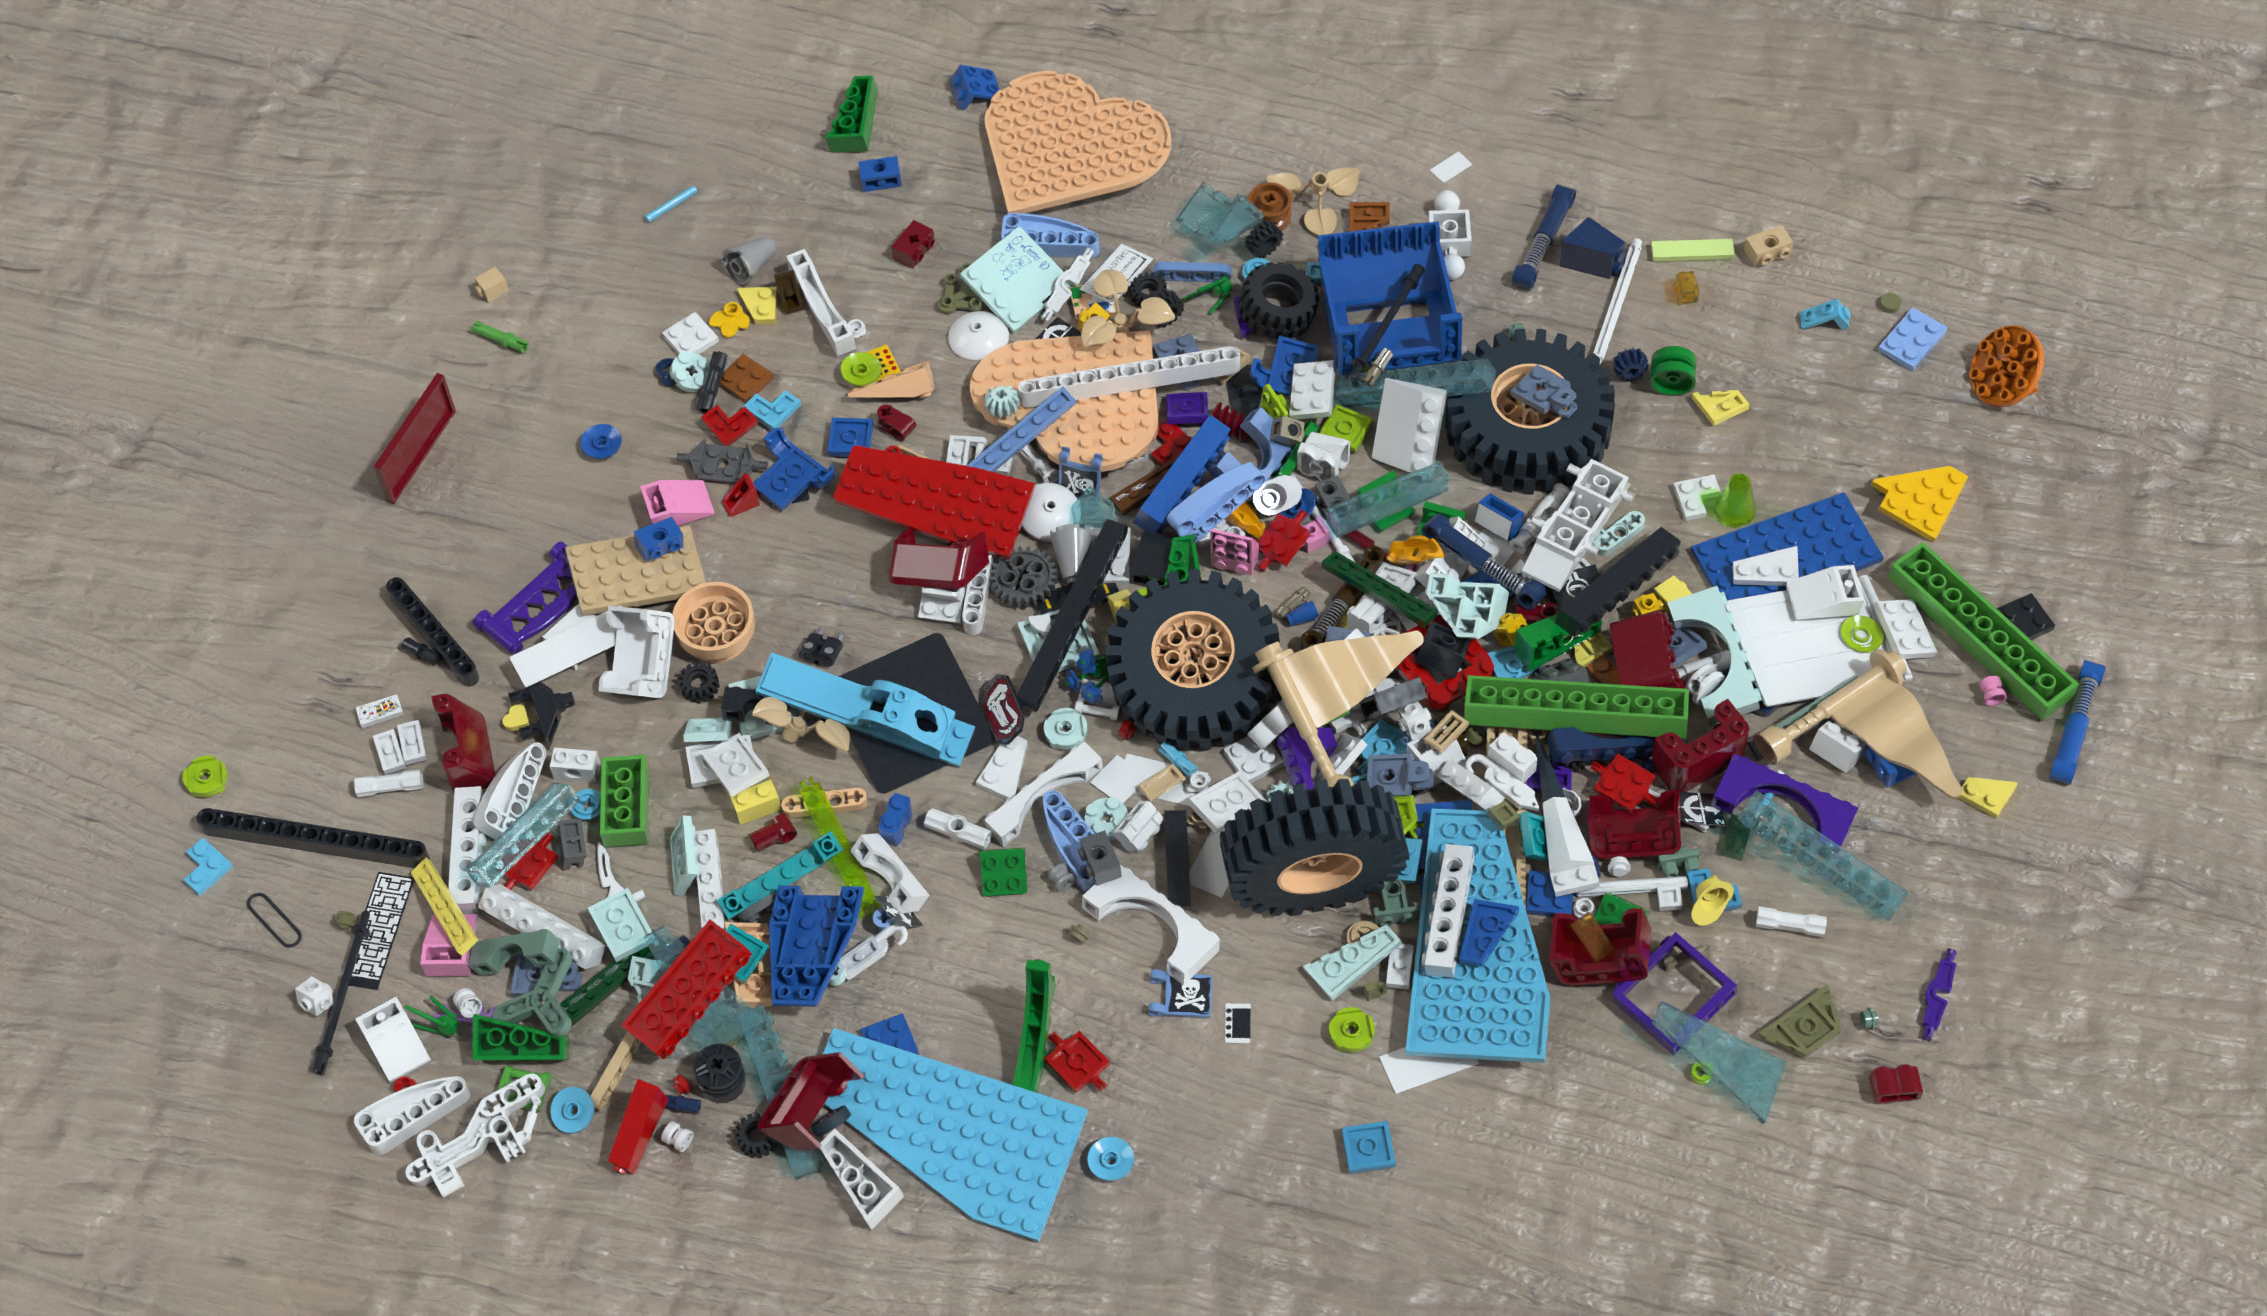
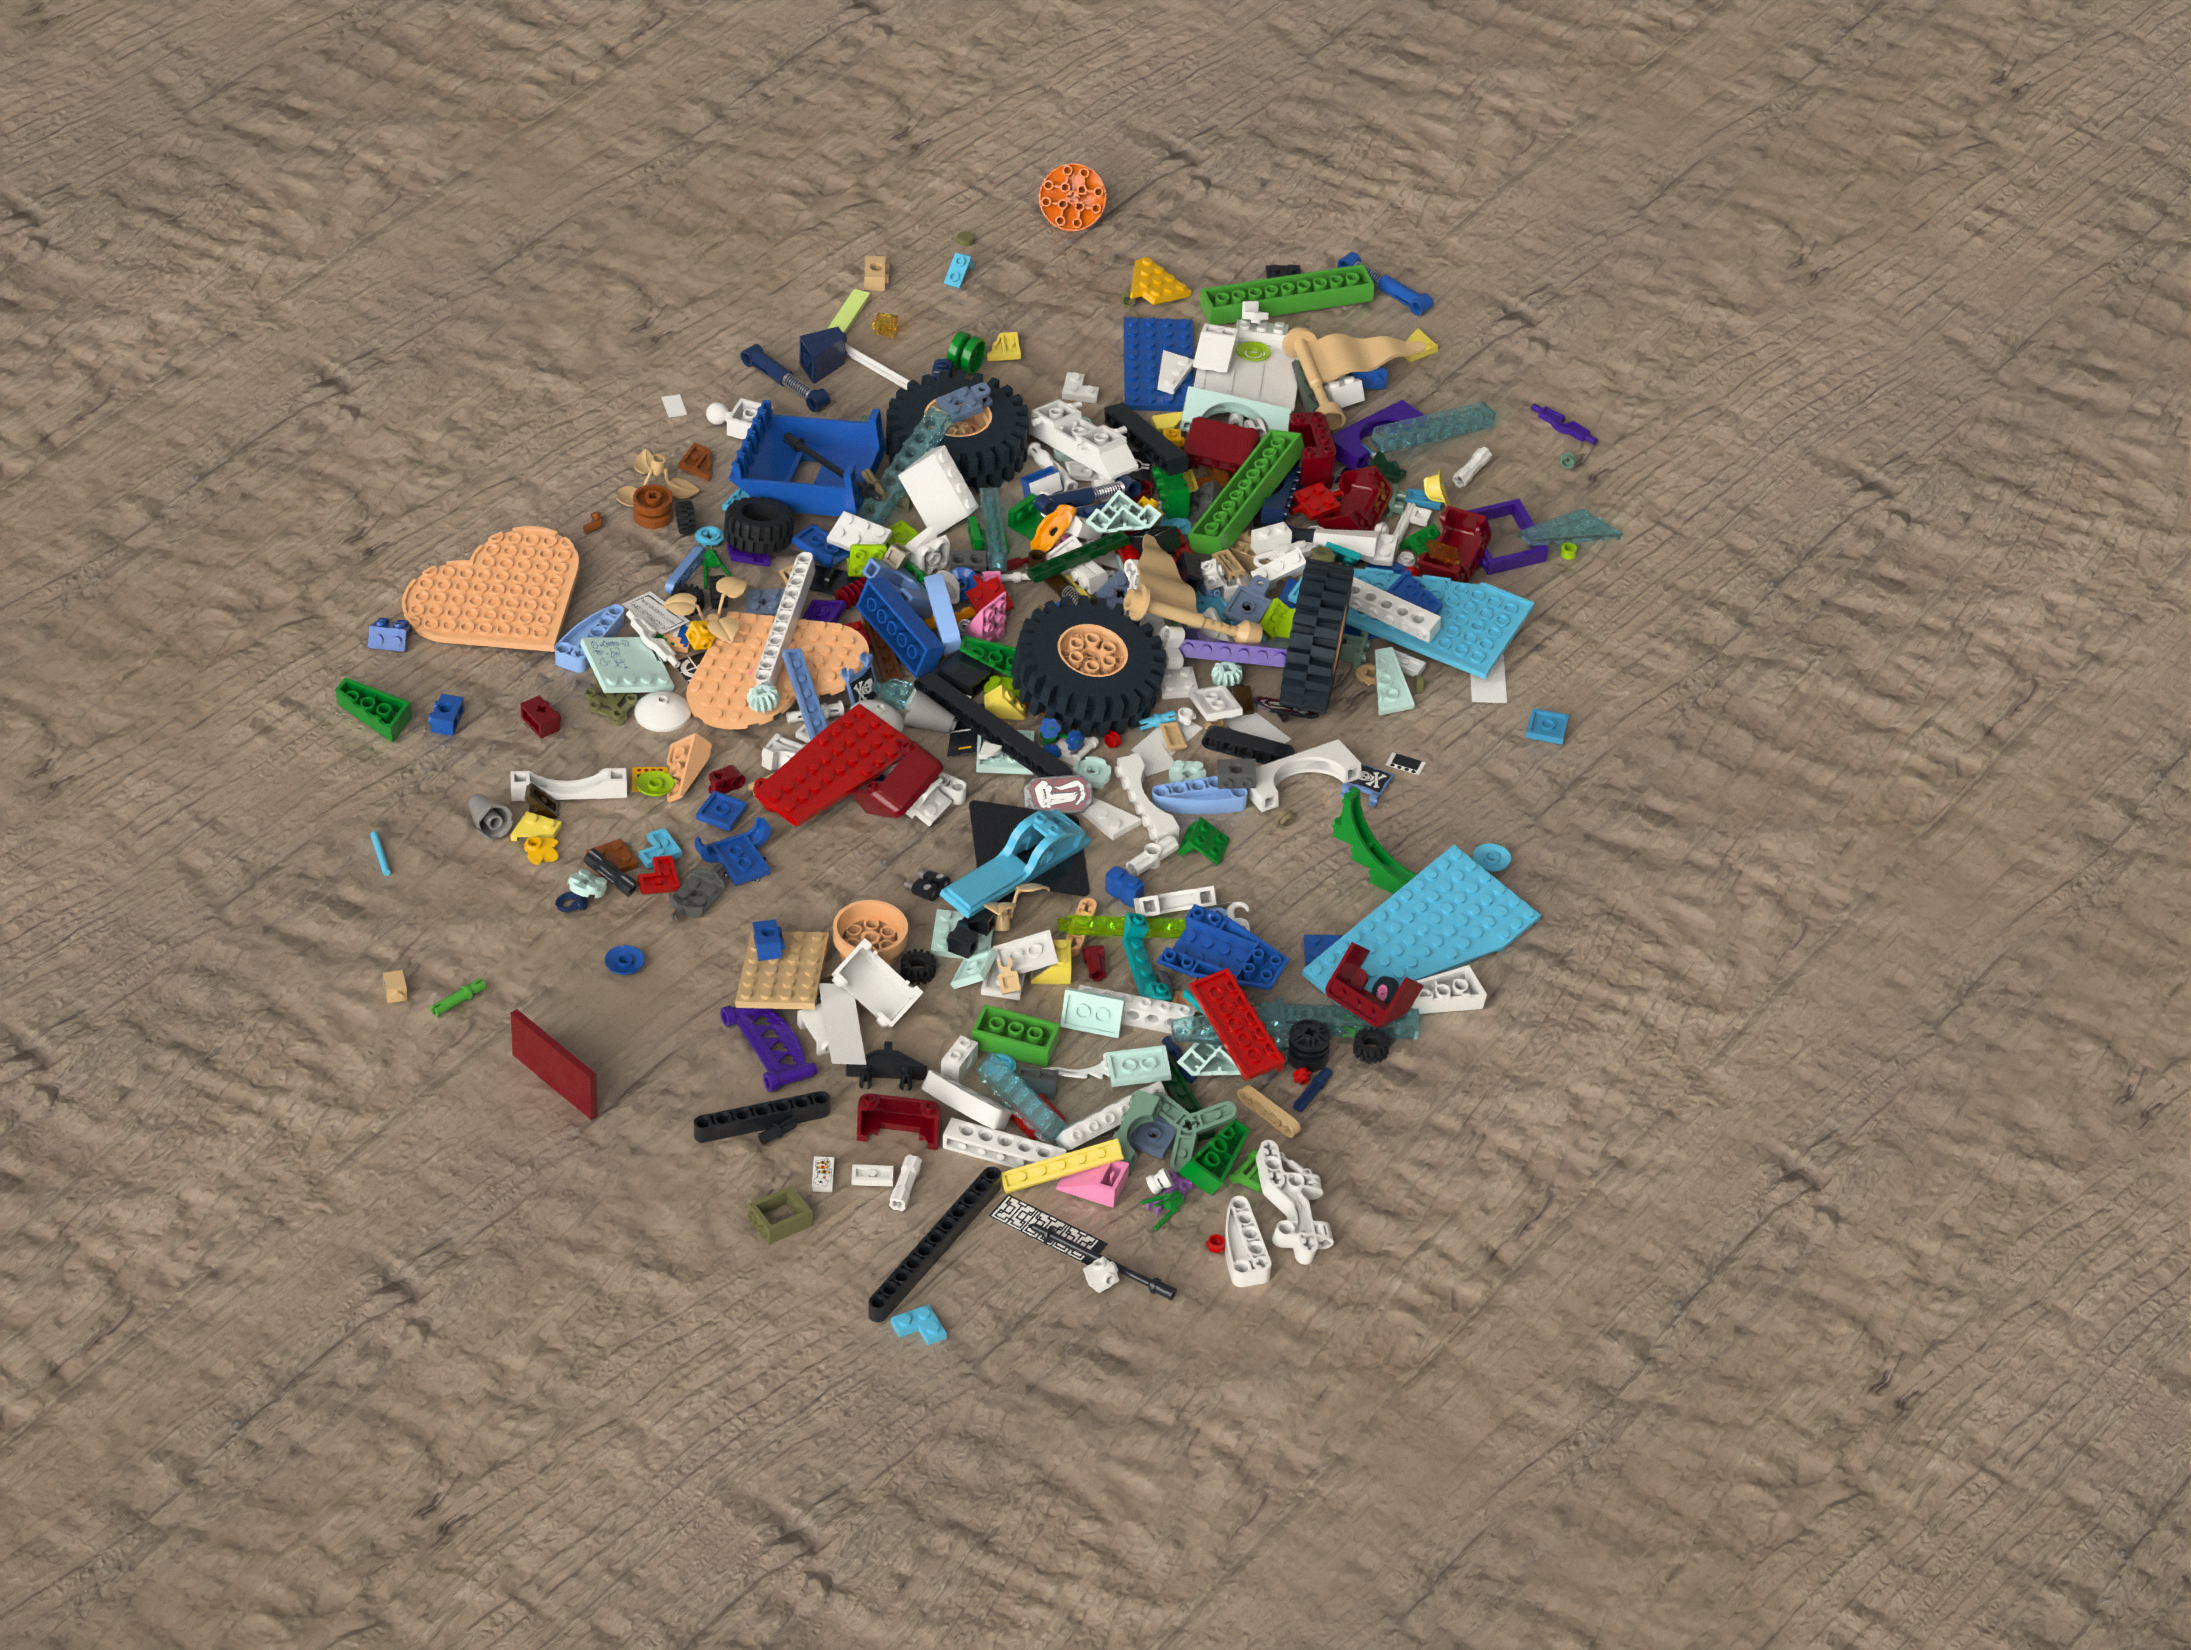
camera: 75 degrees left, 15 degrees down
(205, 788) = (825, 1312): lime plate -> none
(267, 926) = (1000, 1300): black piece -> none
(318, 709) = (788, 1196): none -> olive window
(345, 919) = (1030, 1242): olive plate -> none
(393, 1039) = (1168, 1236): white slope -> none
(412, 742) = (870, 1156): white plate -> none
(516, 718) = (884, 1087): light yellow tile -> none
(563, 1107) = (1297, 1136): medium azure dish -> none
(637, 1127) = (1334, 1101): red slope -> none
(677, 499) = (723, 933): bright pink slope -> none
(677, 1136) = (1350, 1089): white wheel -> none
(690, 335) = (542, 880): white plate -> none
(695, 761) = (1008, 980): none -> tan plate
(741, 496) = (742, 888): red slope -> none
(939, 448) = (775, 758): none -> white slope
(1040, 582) = (940, 745): dark grey gear -> none
(1062, 877) = (1230, 812): light grey wheel -> none
(1077, 1061) = (1404, 849): red plate -> none
(1138, 826) = (1206, 753): white brick -> none
(1218, 216) = (651, 528): clear light blue windscreen -> none
(1226, 176) = (595, 524): none -> dark orange arm
(1351, 1042) = (1449, 712): lime plate -> none
(1736, 502) = (1102, 366): clear neon green cone -> none
(1805, 1026) = (1558, 489): olive wing -> none
(1895, 1084) = (1625, 464): dark red brick -> none
(1912, 339) = (1006, 240): light blue plate -> none
(1915, 606) = (1250, 311): none -> white bracket
(1992, 689) = (1336, 310): bright pink wheel -> none

